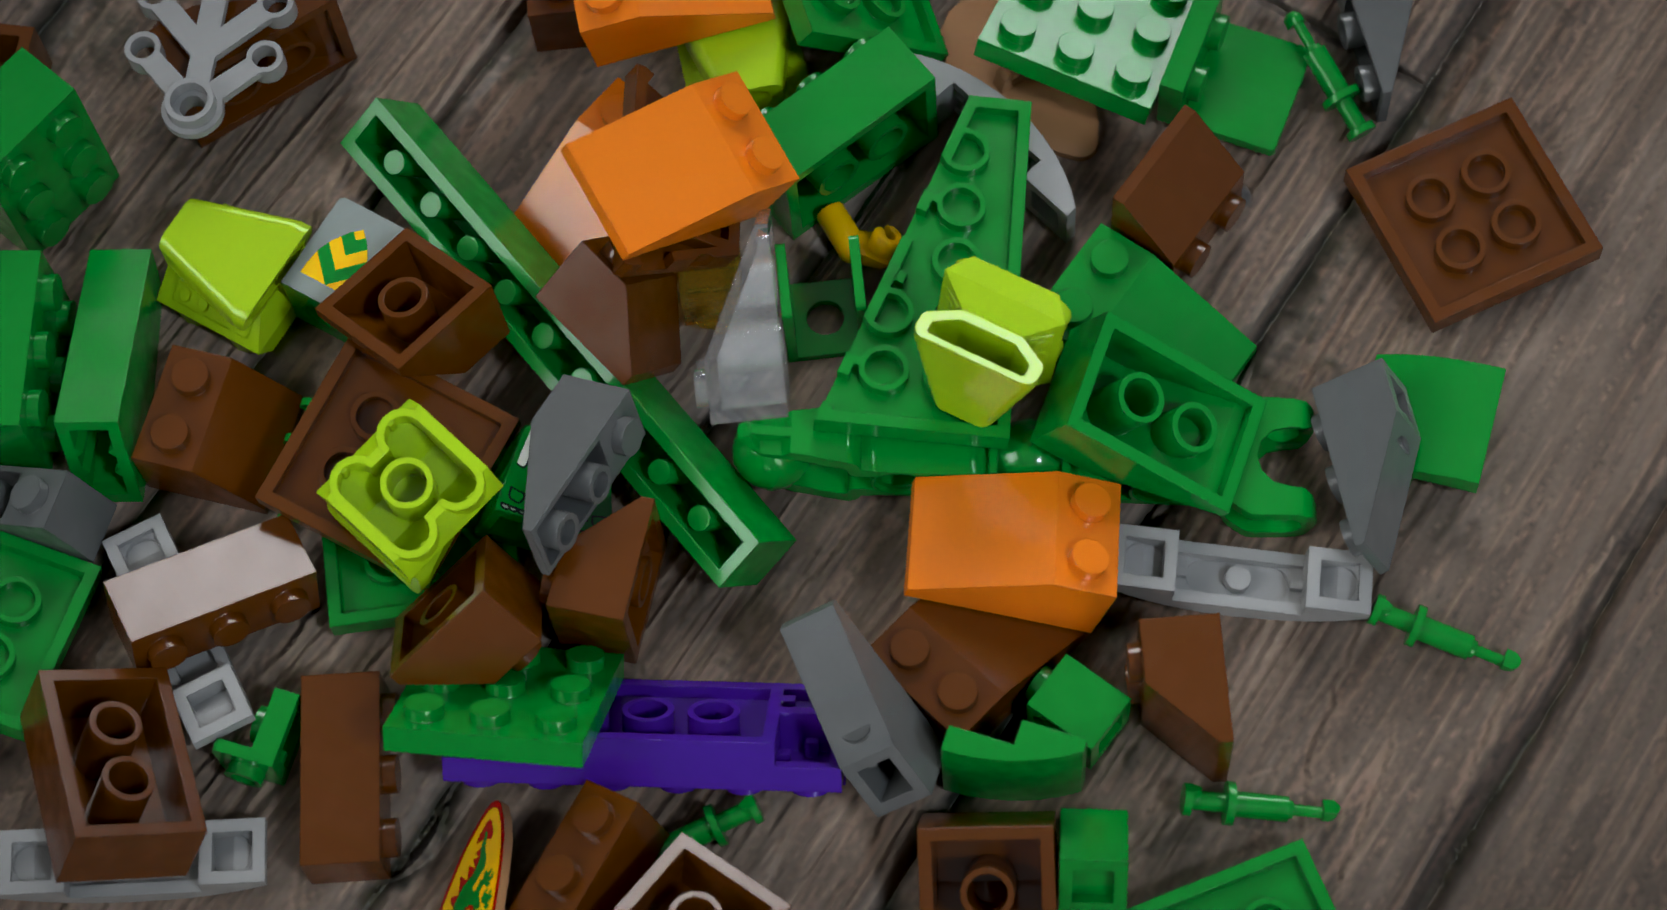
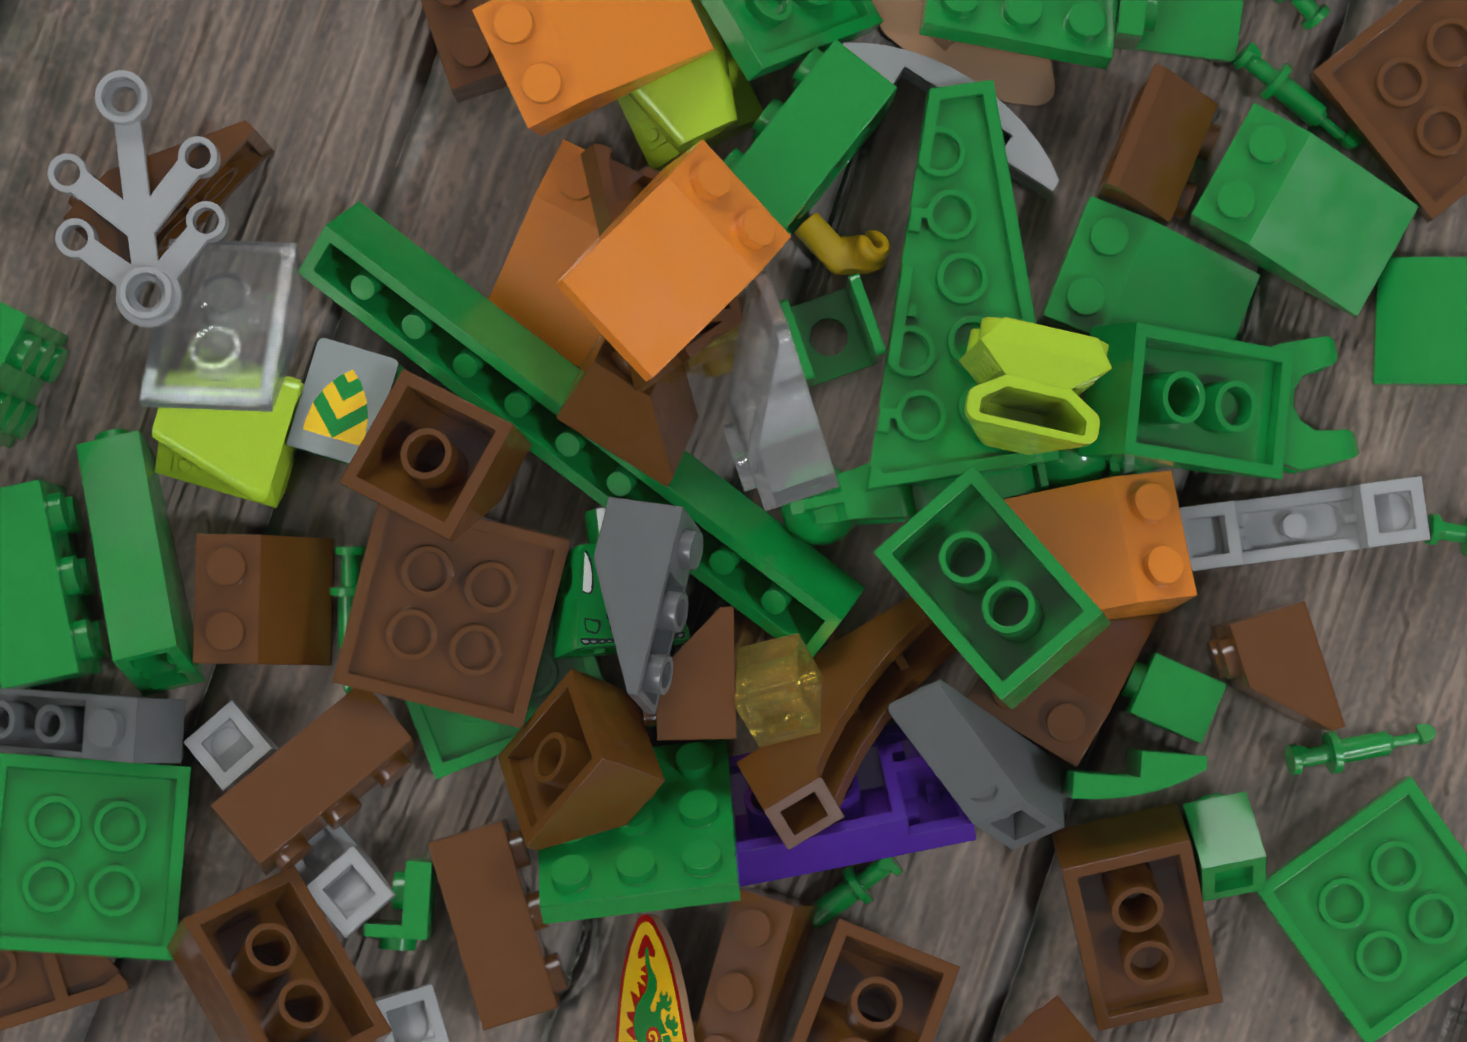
camera: 20 degrees left, 20 degrees up
(262, 164) = (232, 330): none -> clear slope
(409, 492) = (496, 662): lime piece -> none
(679, 592) = (778, 690): none -> clear yellow brick
(737, 638) = (862, 673): none -> reddish brown arch
(911, 532) = (992, 587): none -> green brick
(1304, 285) = (1302, 211): none -> green slope
(1322, 191) = (1291, 94): none -> green piece
(1373, 453) = (1402, 375): dark grey slope -> none

